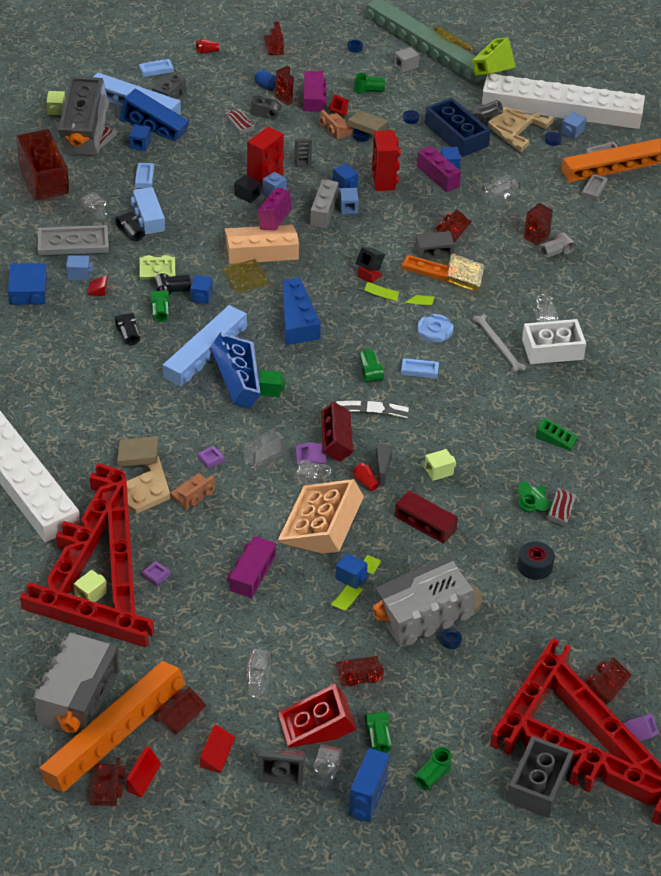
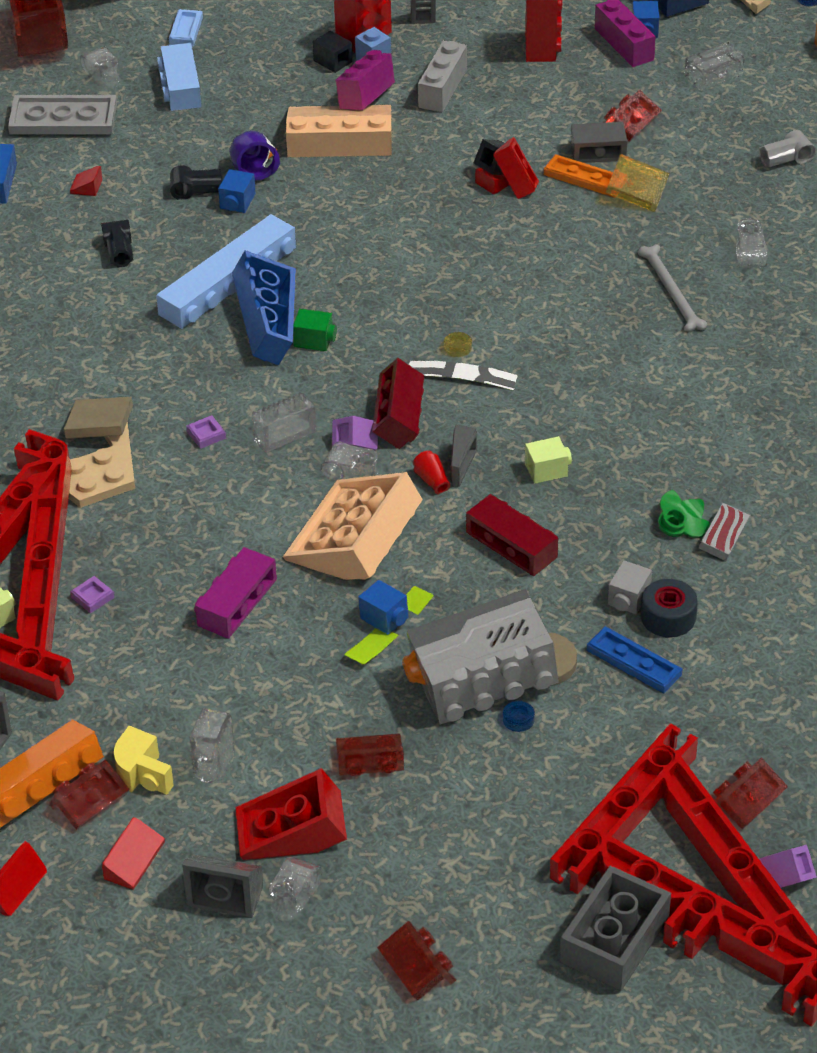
camera: 10 degrees right, 0 degrees up
(79, 267) = (62, 153): medium blue brick -> none
(128, 223) = (149, 95): black piece -> none
(152, 266) = (169, 154): yellowish green bracket -> none
(160, 305) = (172, 207): green piece -> none
(193, 491) = (170, 478): nougat bracket -> none
(206, 262) = (250, 153): none -> dark purple piece
(208, 686) = (137, 762): none -> light yellow brick
(245, 275) = (307, 175): clear yellow tile -> none
(300, 318) = (373, 237): blue wedge -> none
(345, 176) = (482, 40): blue brick -> none
(348, 200) = (480, 73): medium blue brick -> none
(366, 388) = (457, 344): none -> clear yellow tile
(368, 785) = (347, 922): blue brick -> none
(371, 368) = (469, 312): green piece -> none
(378, 728) = (380, 844): green piece -> none
(385, 266) = (516, 168): none -> red slope
(393, 295) = (524, 211): lime sticker -> none
(414, 807) = (415, 959): none -> clear red bracket
(419, 368) = (544, 319): light blue tile -> none
(434, 769) = (455, 905): green piece -> none
(435, 333) = (579, 268): light blue tile -> none
(508, 548) = (628, 587): none -> light grey brick
(518, 596) = (634, 659): none -> blue tile
(538, 224) = (760, 116): clear red brick -> none
(545, 431) = (721, 413): green slope -> none
(554, 341) = (754, 288): white brick -> none

